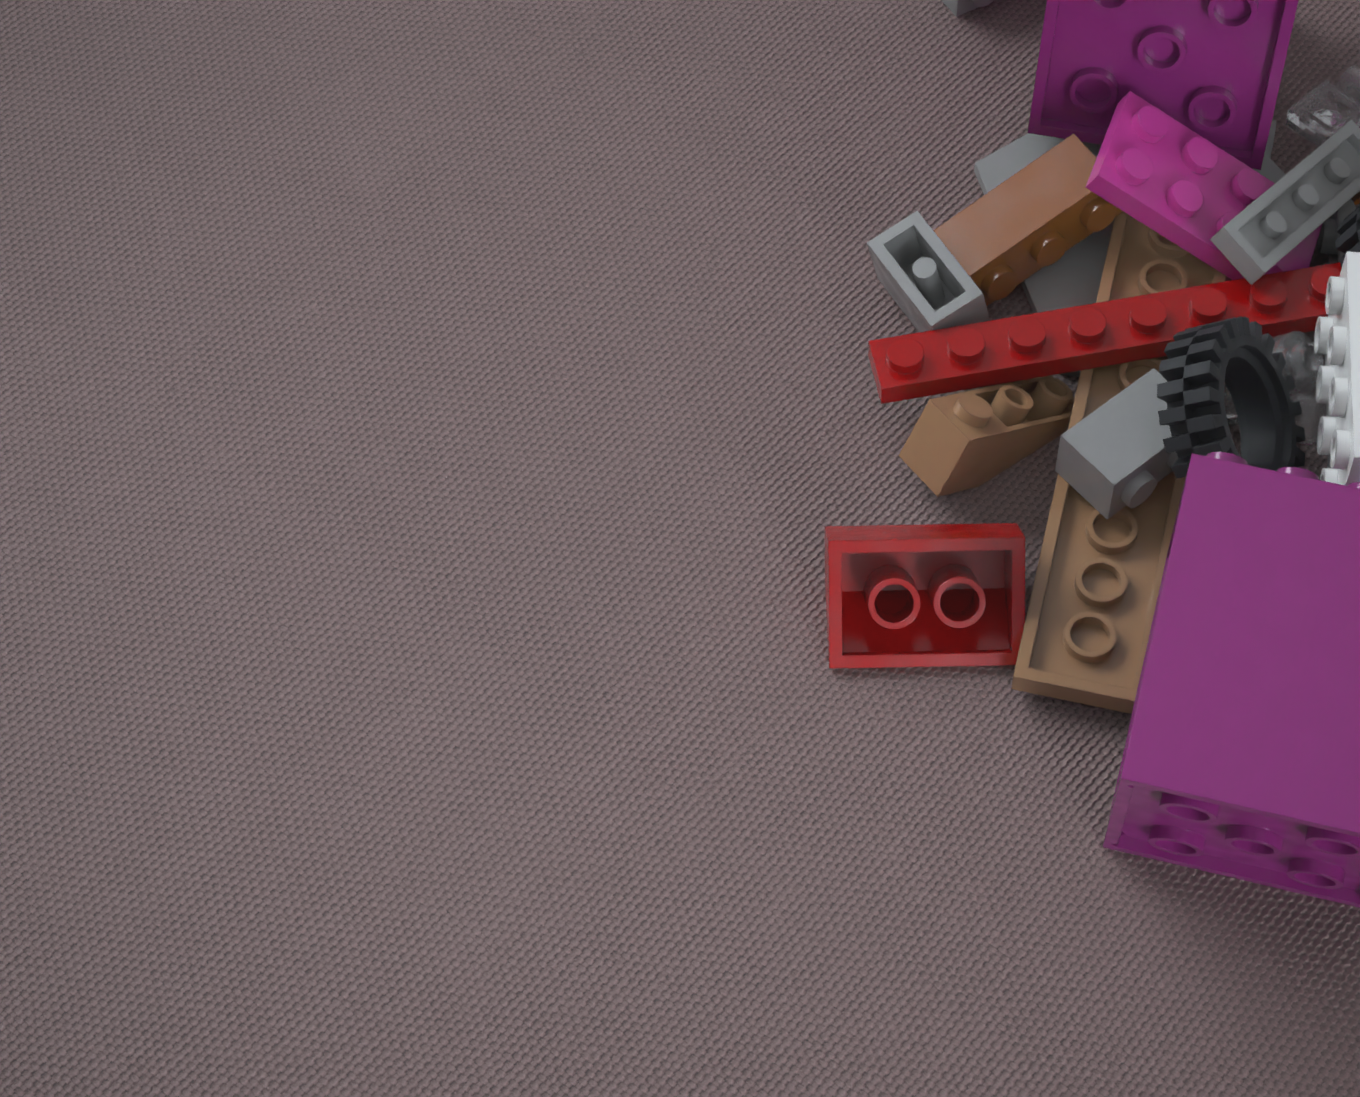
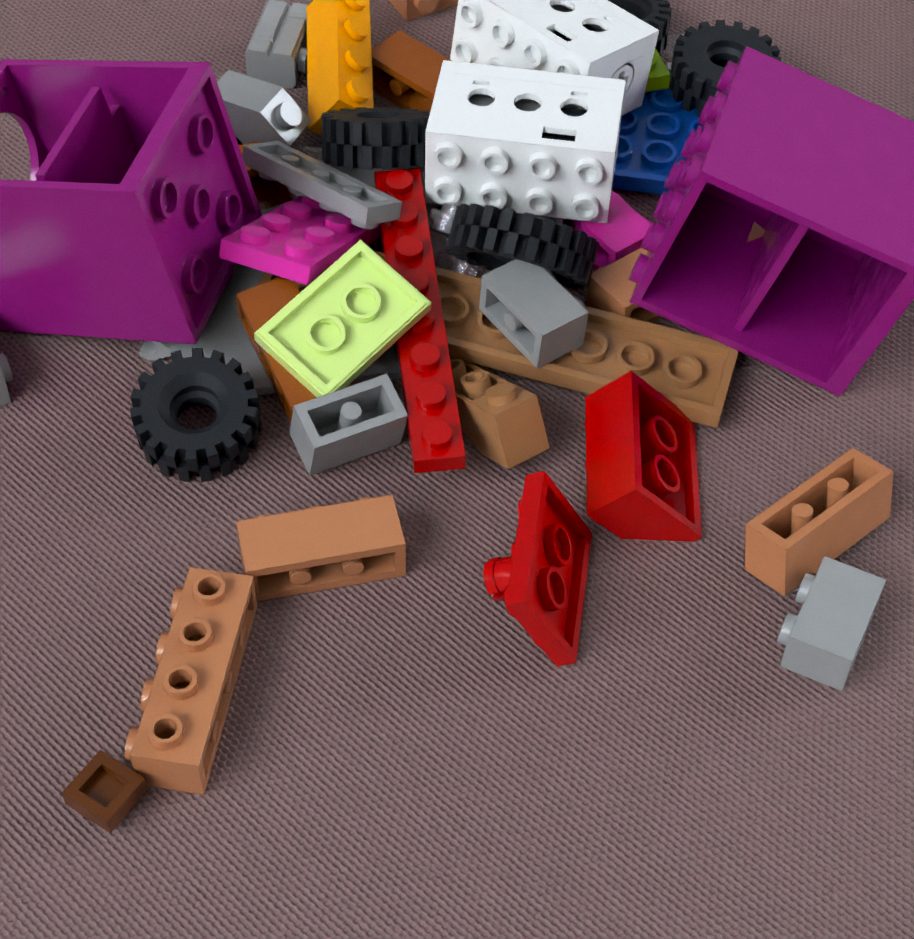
camera: 90 degrees left, 5 degrees down
(454, 151) = (105, 791): none -> reddish brown plate
(583, 200) = (193, 680): none -> nougat brick
(693, 787) = (831, 622): none -> light grey brick
(730, 481) = (546, 569): none -> red plate
(763, 288) = (322, 547): none -> nougat brick
(837, 769) = (818, 520): none -> nougat brick
(922, 123) = (188, 384): none -> black tyre
(1054, 240) = (342, 321): none -> yellowish green tile

